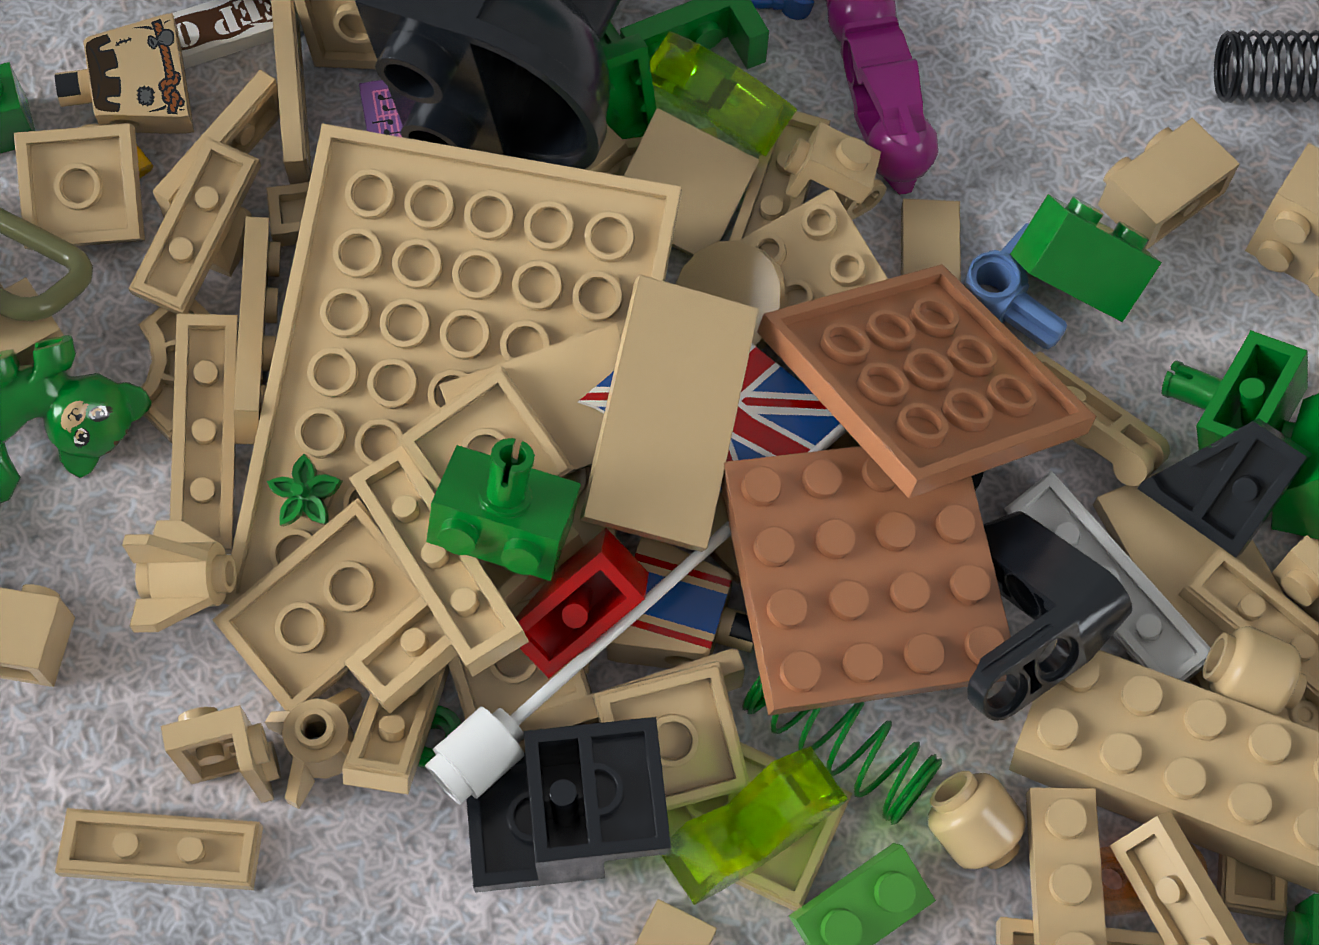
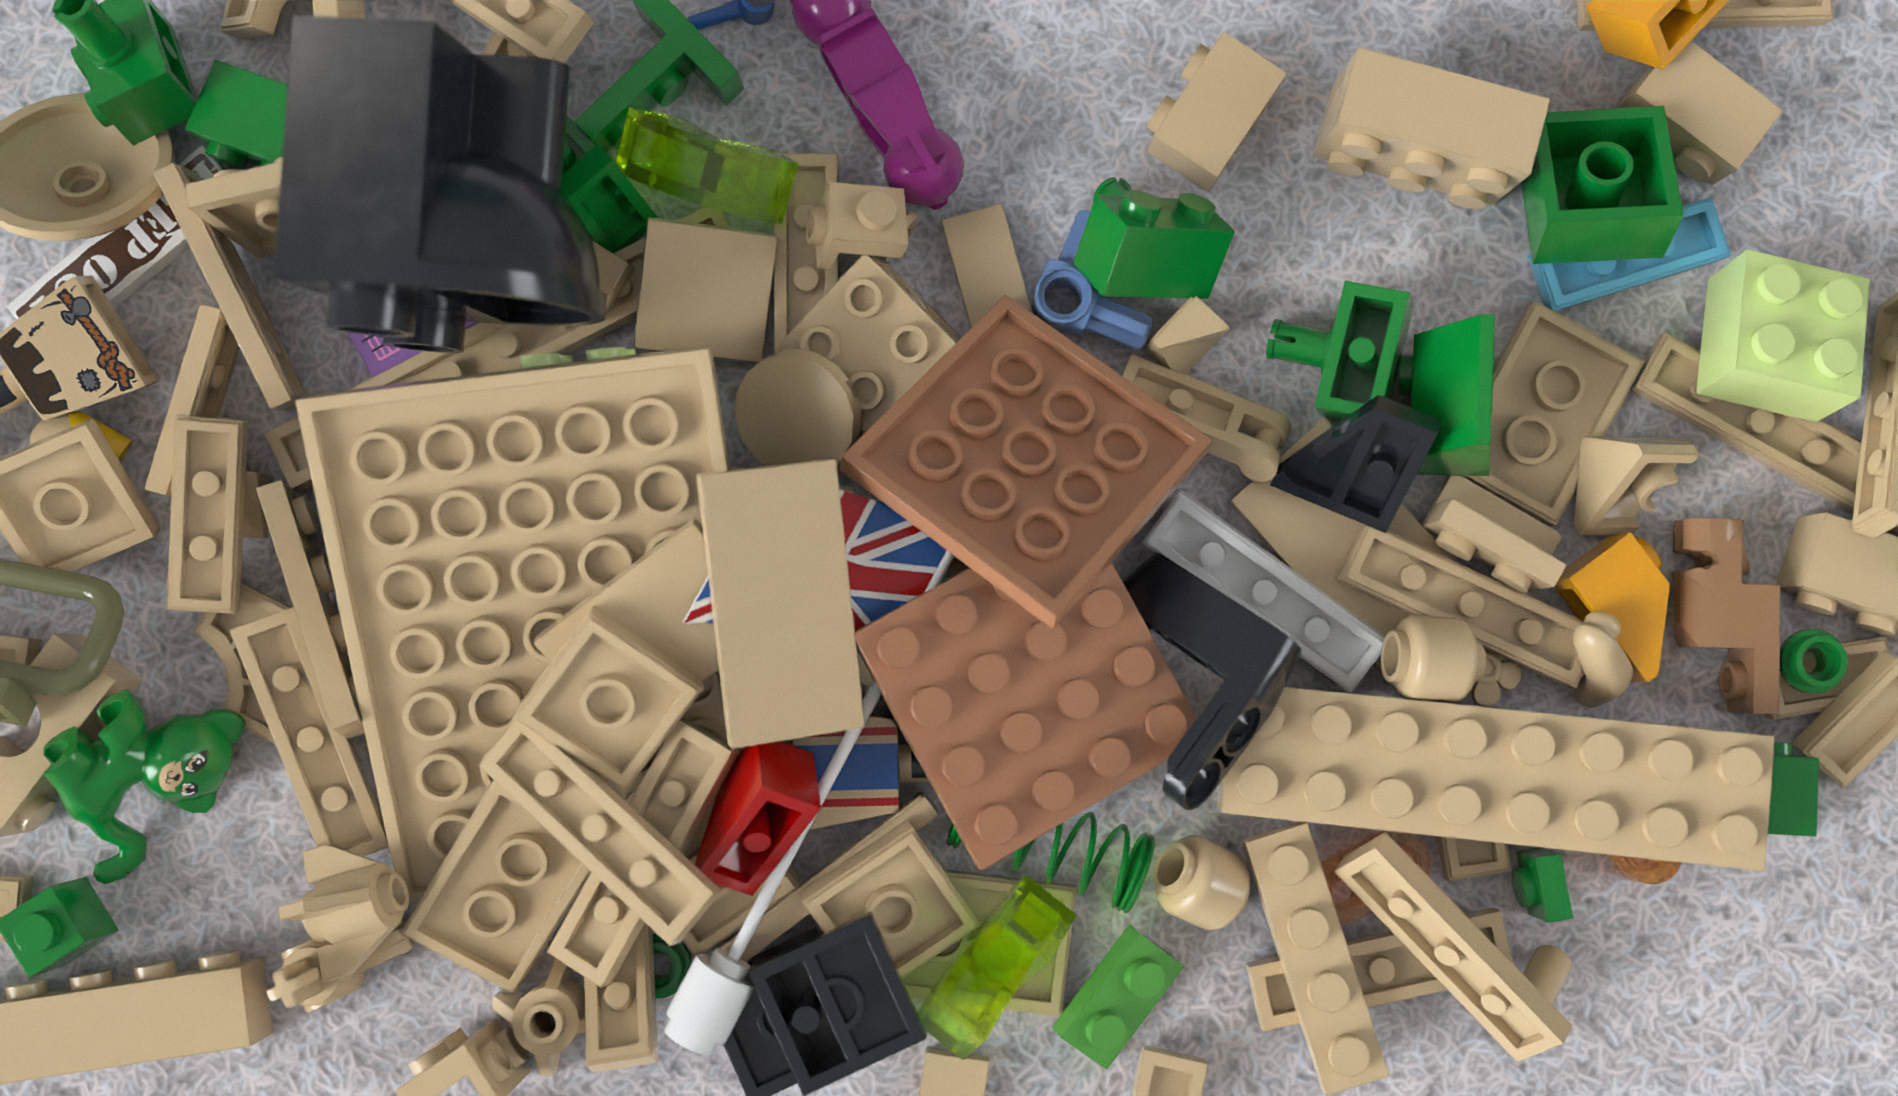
camera: 20 degrees left, 20 degrees up
(123, 651) = (300, 974): none -> tan axle
(304, 492) = (439, 783): green plant -> none
(503, 509) = (649, 777): green brick -> none
(1095, 348) = (1186, 336): none -> tan slope

